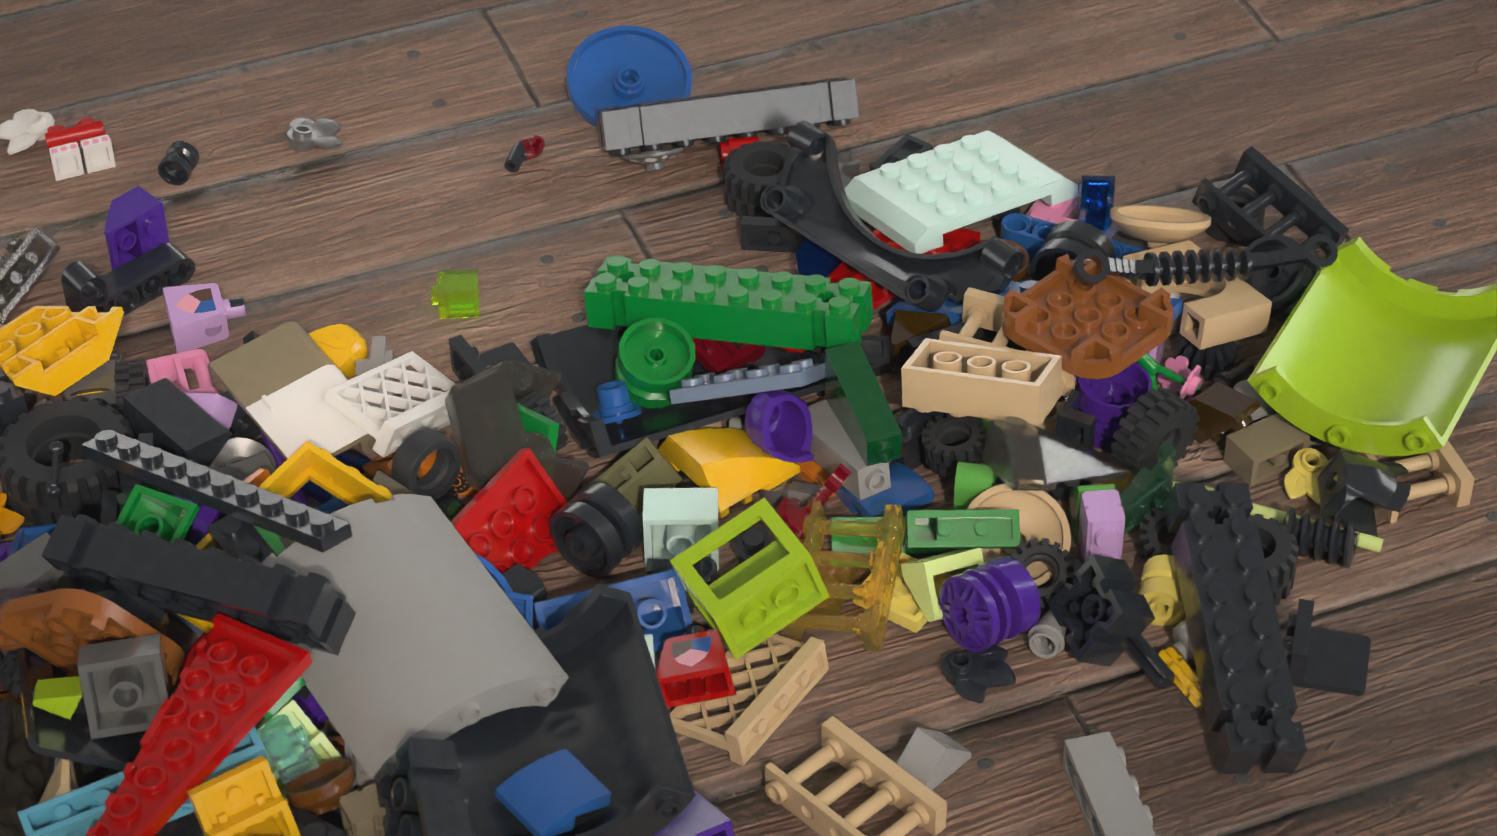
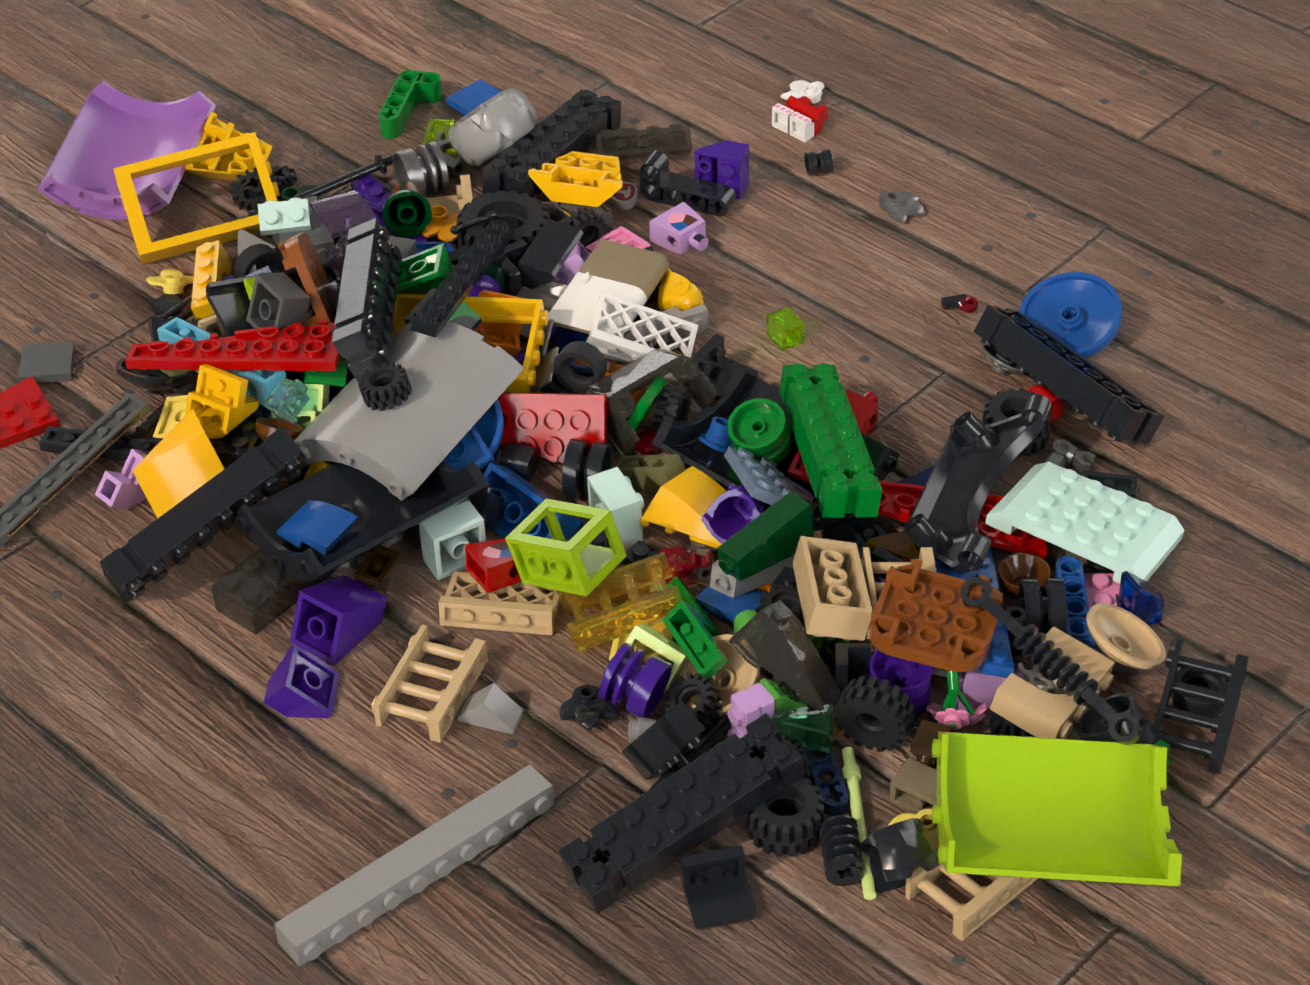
camera: 65 degrees right, 0 degrees up
(409, 632) = (385, 386): none -> black tyre

